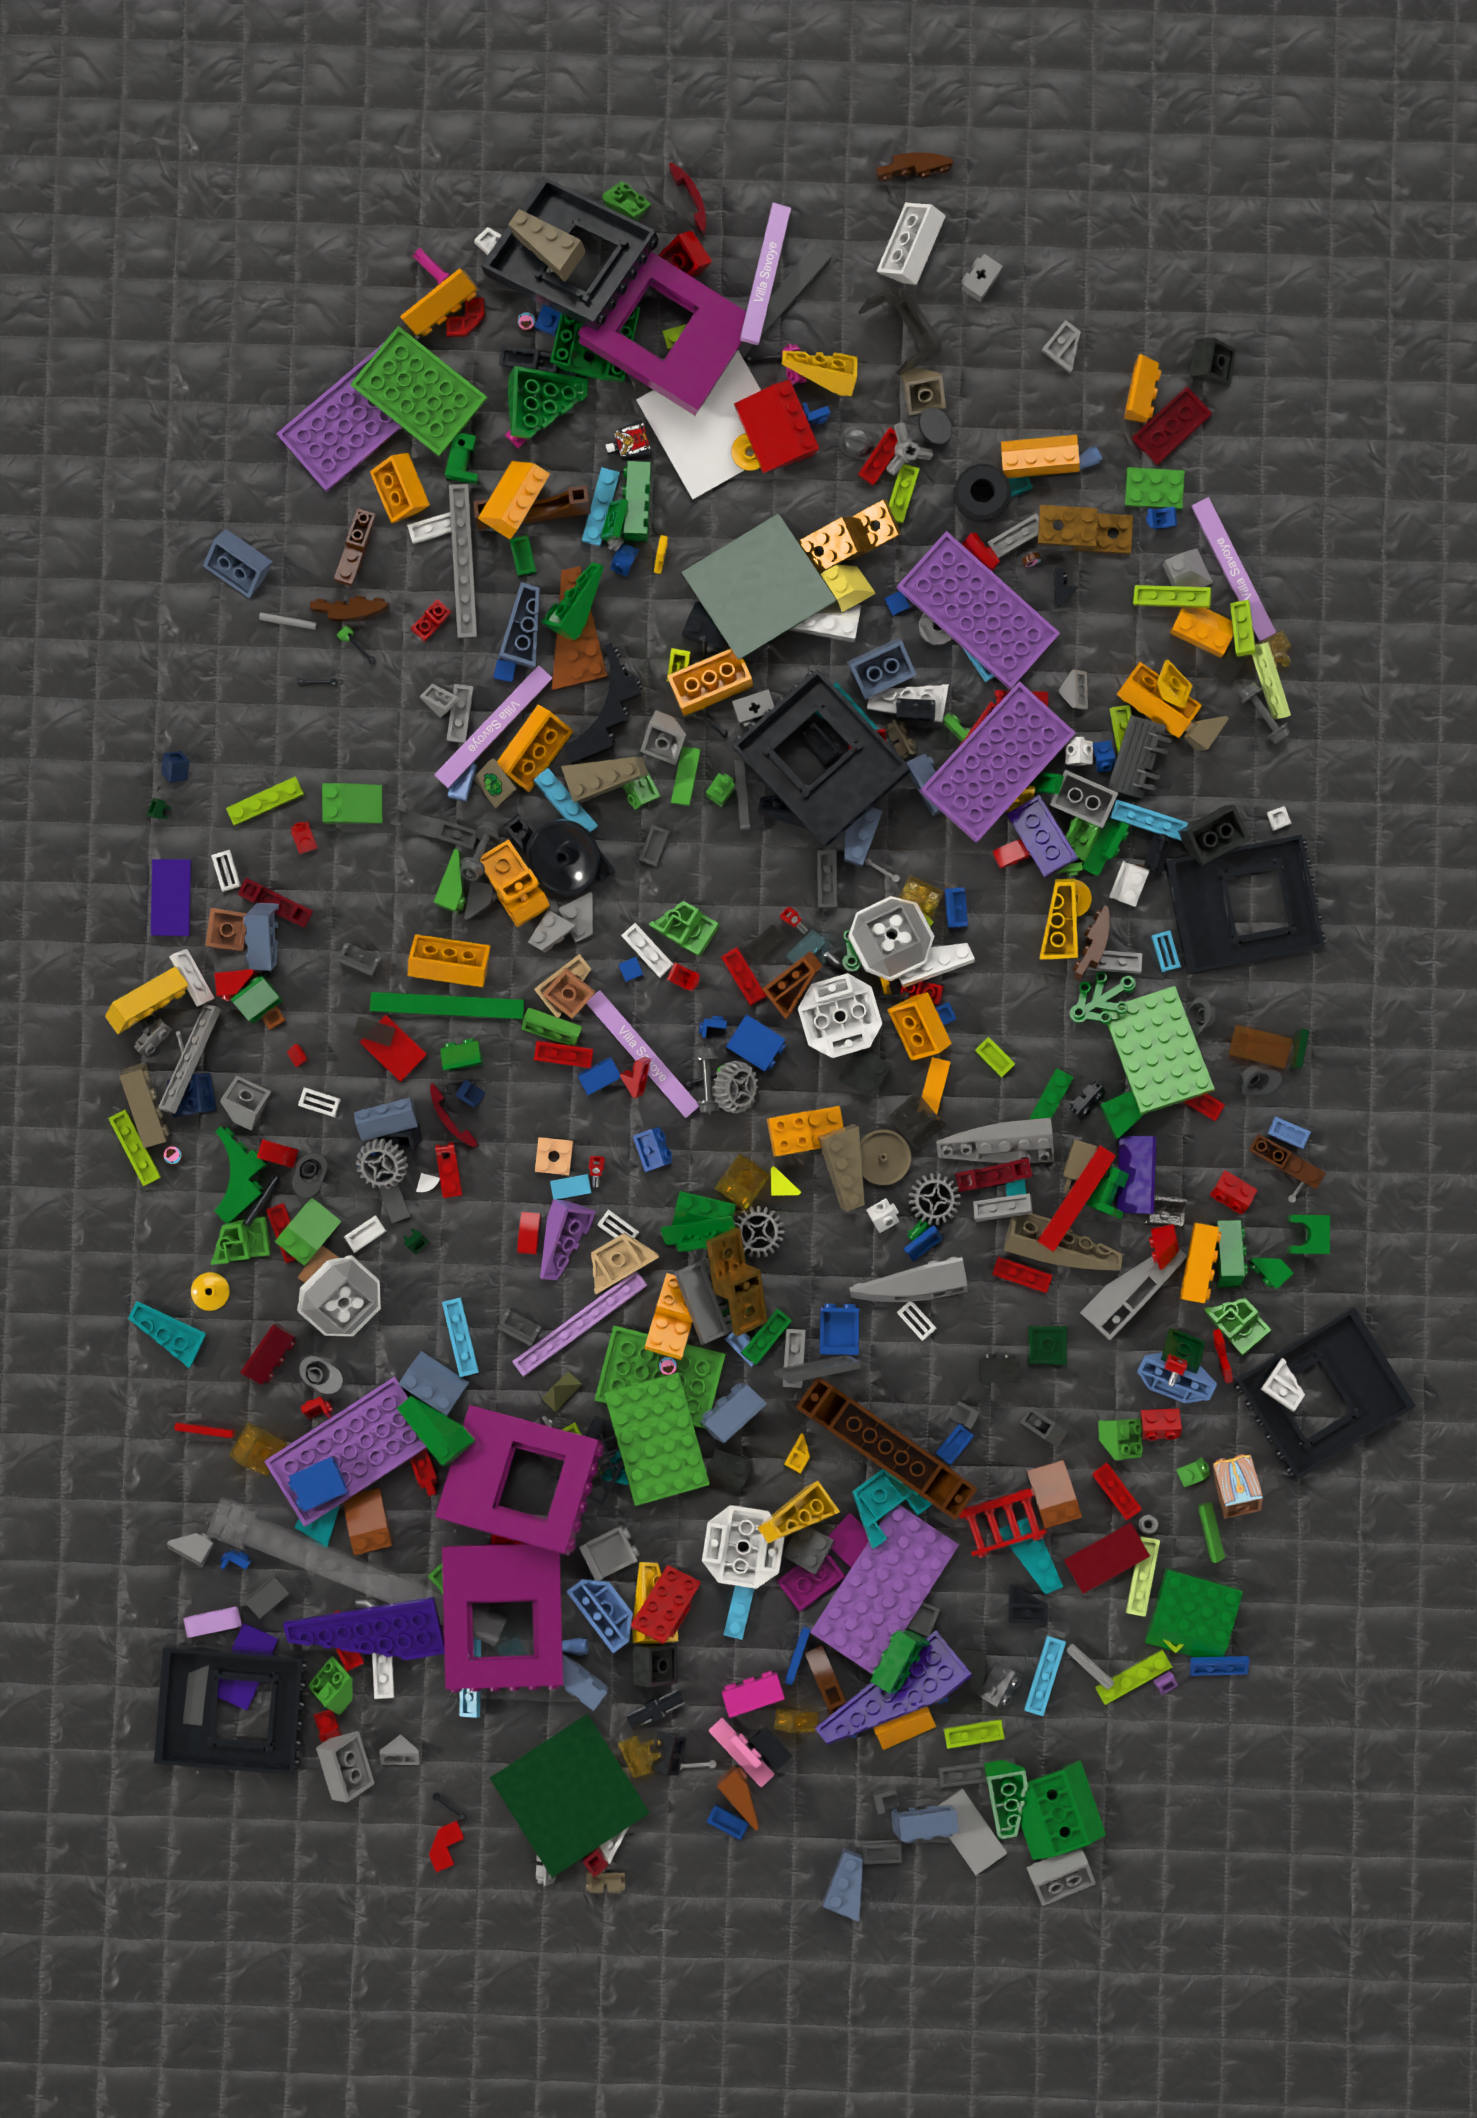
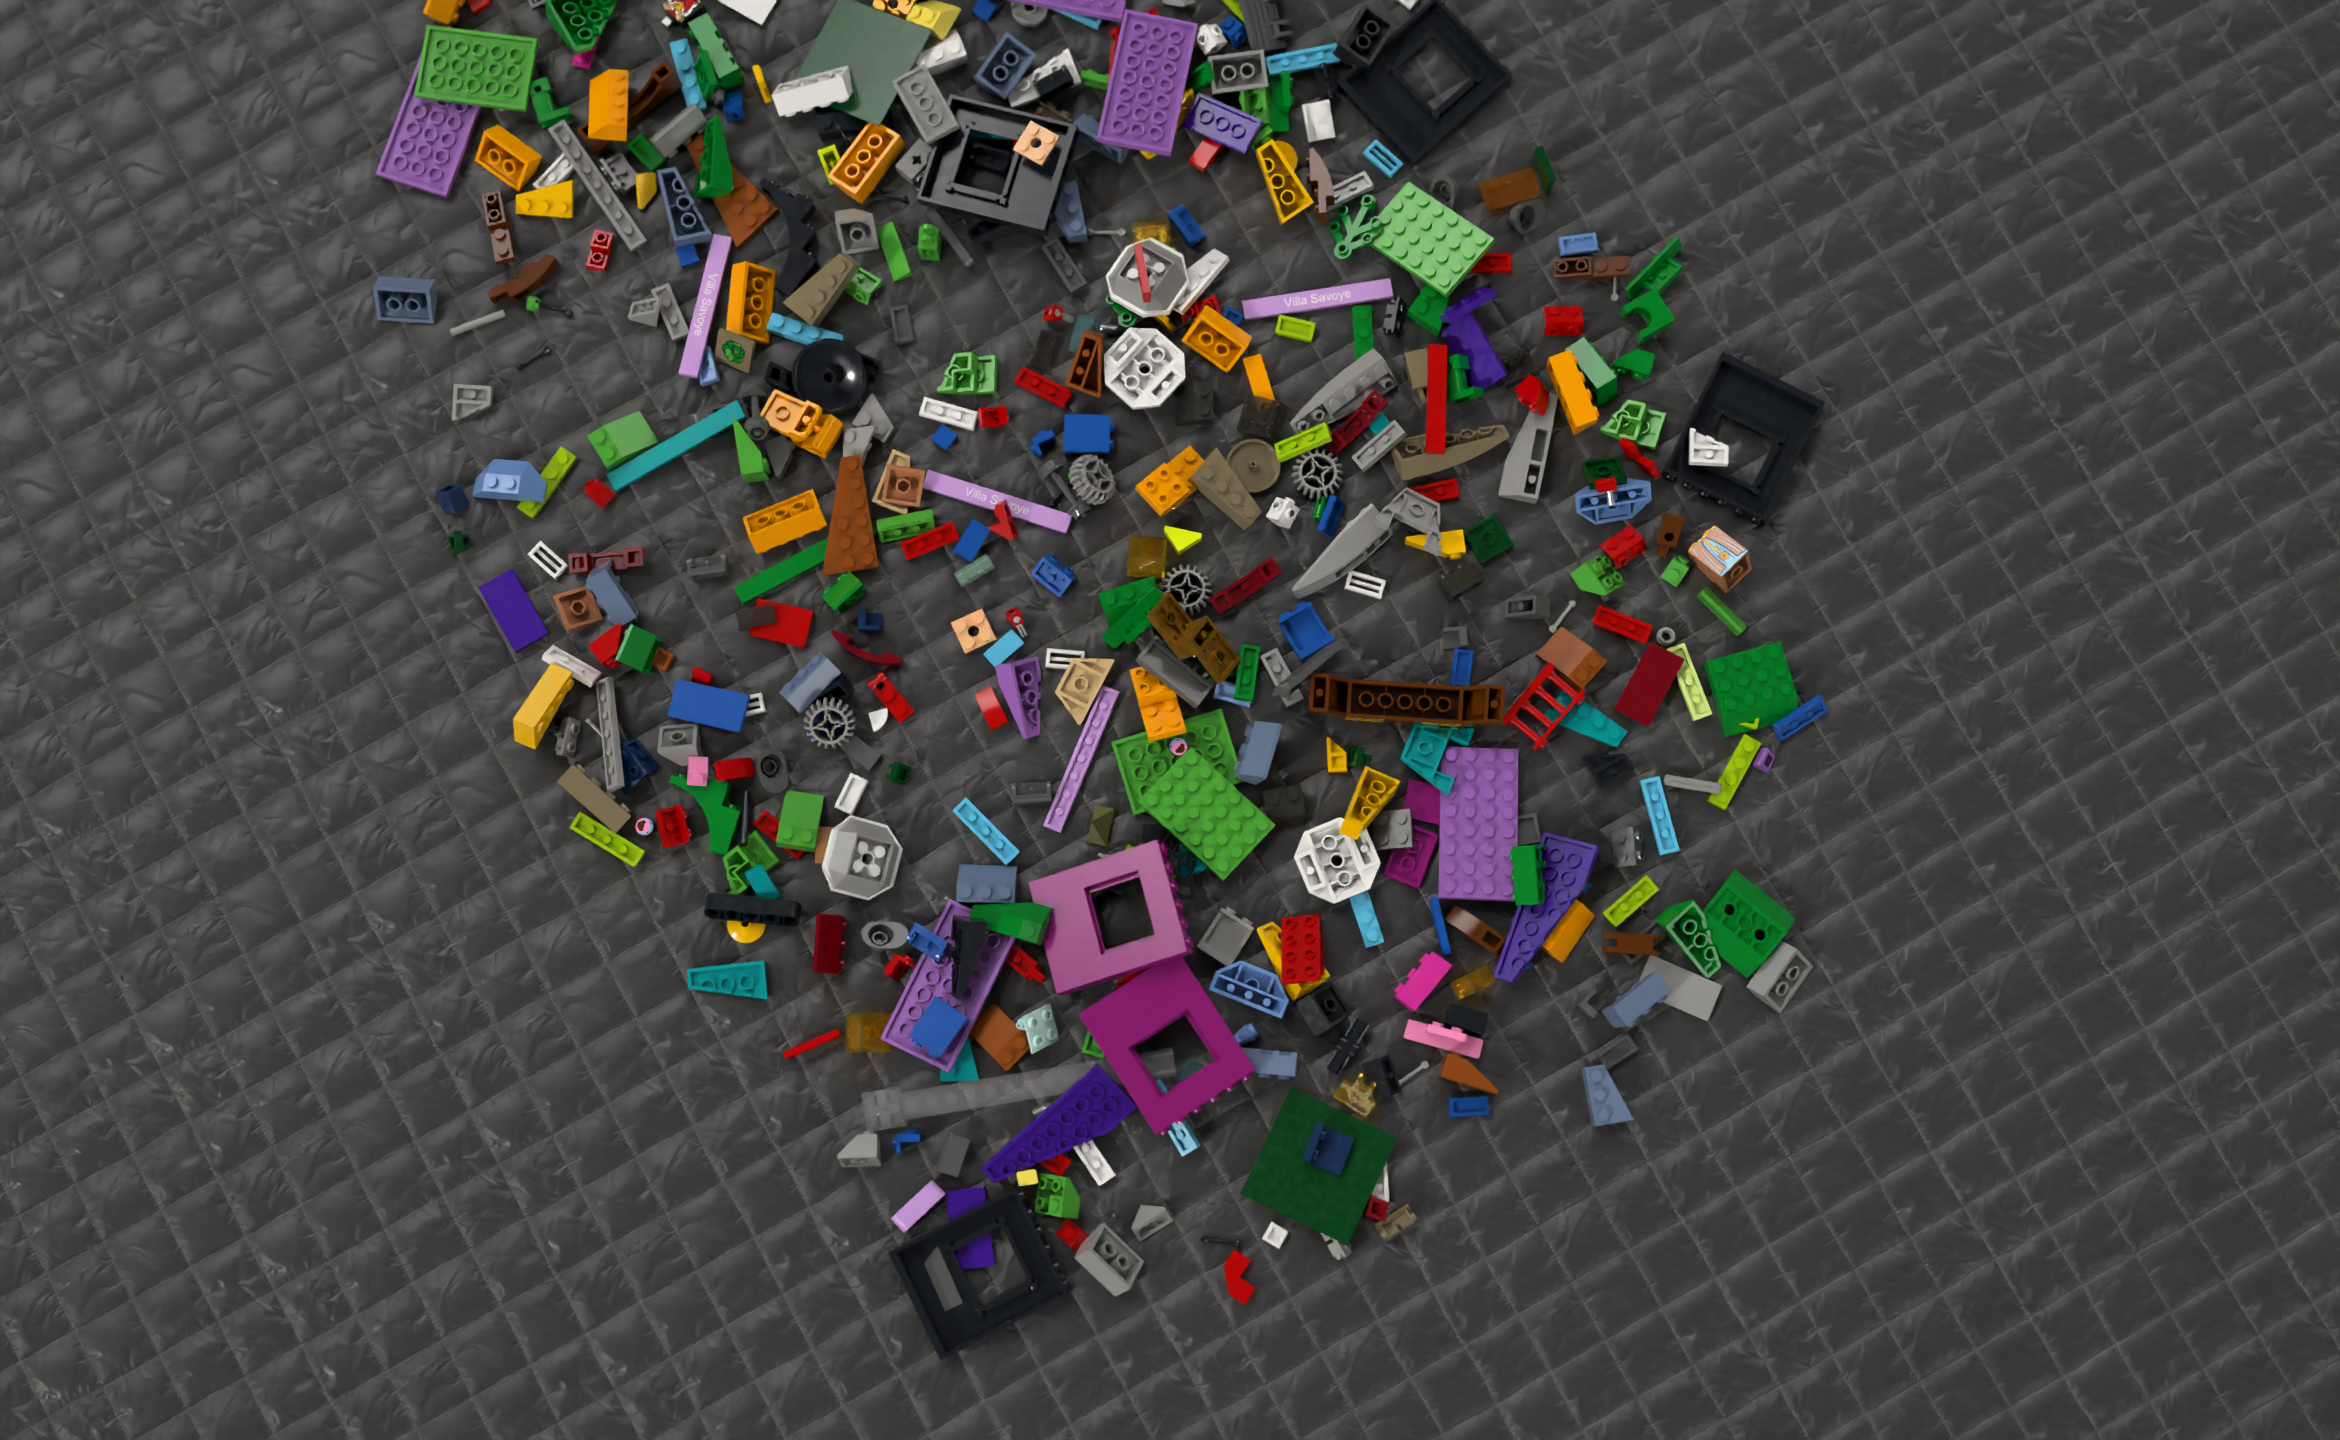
camera: 30 degrees left, 5 degrees down
(196, 1170) = (673, 826): none -> red bracket
(221, 1284) = (752, 909): none -> black beam
(233, 782) = (510, 482): none -> medium blue wedge
(241, 687) = (470, 399): none -> light grey wing
(242, 1267) = (761, 882): none -> teal tile
(244, 1137) = (697, 771): none -> bright pink brick
(288, 1083) = (708, 705): none -> blue tile
(317, 1655) = (1027, 1177): none -> light yellow slope
(353, 1404) = (928, 942): none -> blue hinge
(388, 1426) = (969, 940): none -> black wedge
(394, 838) = (676, 446): none -> teal tile
(404, 1535) = (1039, 1028): none -> light aqua hinge
(412, 549) = (547, 201): none -> yellow wing
(489, 561) = (620, 171): none -> flat silver bracket
(498, 1829) = (1275, 1235): none -> white tile
(500, 1005) = (850, 532): none -> dark orange wing
(503, 588) = (645, 188): none -> yellow tile
(562, 554) = (679, 131): none -> light grey slope
(585, 1787) = (1328, 1149): none -> dark blue bracket
(586, 1103) = (974, 570): none -> sand green axle
(700, 590) = (813, 91): none -> white slope
(790, 665) = (925, 104): none -> light grey tile
(811, 1259) = (1245, 586): none -> dark red slope
(817, 1467) = (1357, 757): none -> dark green tile
(864, 751) = (1036, 133): none -> light nougat piece
(886, 935) = (1142, 272): none -> tile
(938, 1164) = (1303, 442): none -> lime plate
(951, 1772) = (1632, 944): none -> reddish brown piece
(998, 1287) = (1417, 512): none -> light grey wing
(1004, 1326) = (1451, 543): none -> yellow slope
(1030, 1043) = (1317, 299): none -> lavender tile
(1055, 1458) = (1553, 628): none -> light grey hinge
(1156, 1130) = (1467, 304): none -> dark purple wing
(1211, 1431) = (1669, 525): none -> reddish brown torso
(1343, 1202) = (1659, 272): none -> green bracket

